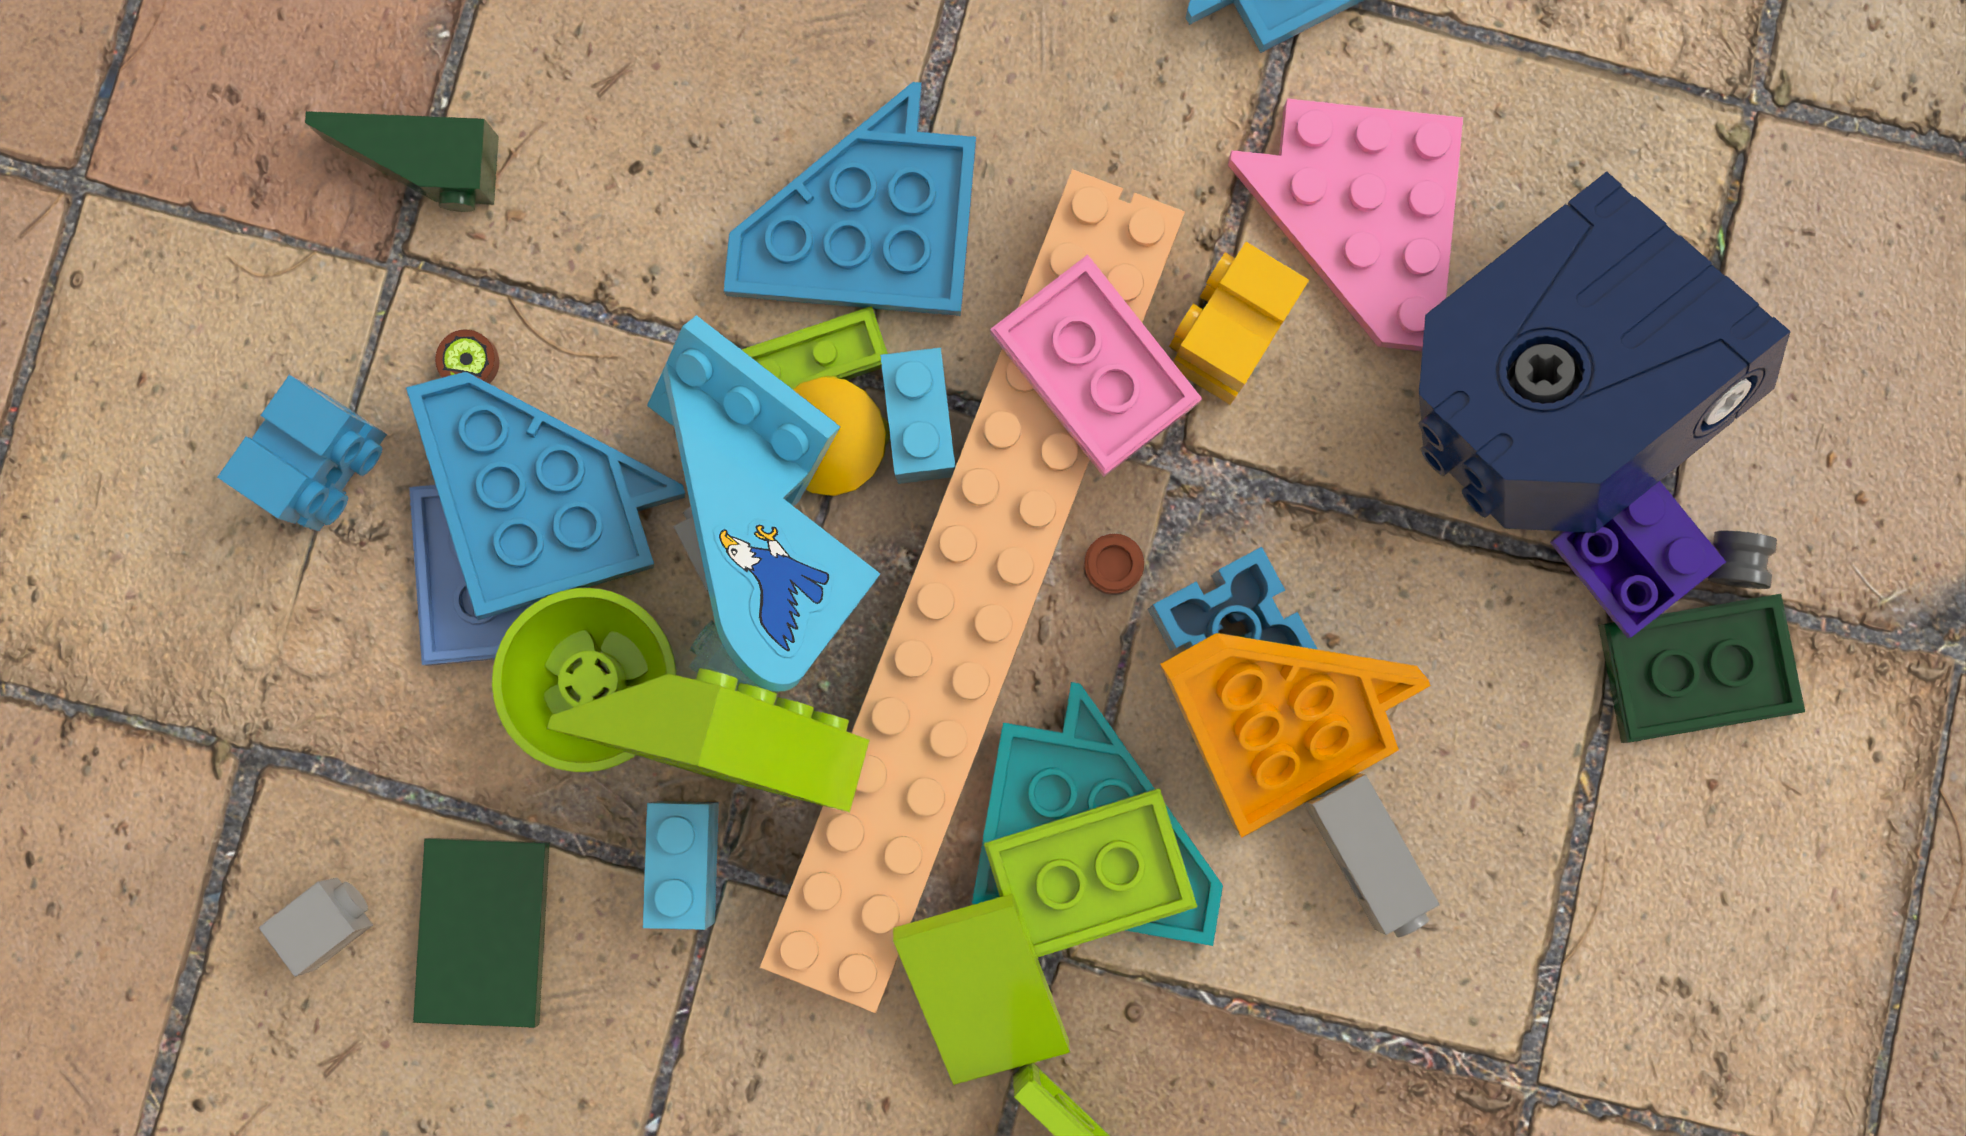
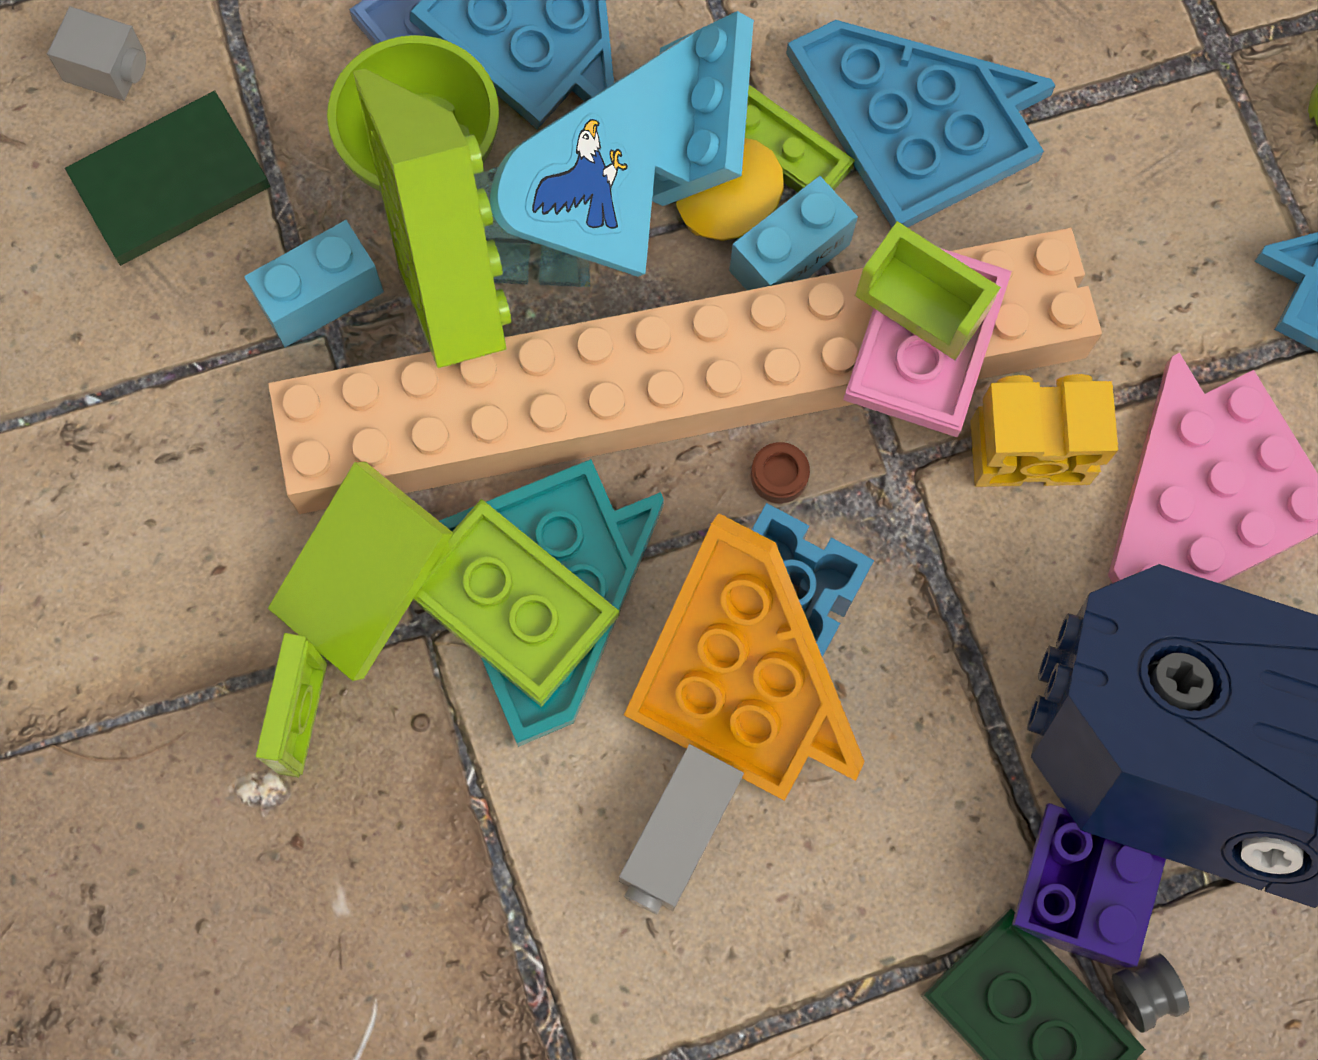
camera: 50 degrees right, 10 degrees down
(1070, 346) = (926, 290): none -> lime panel

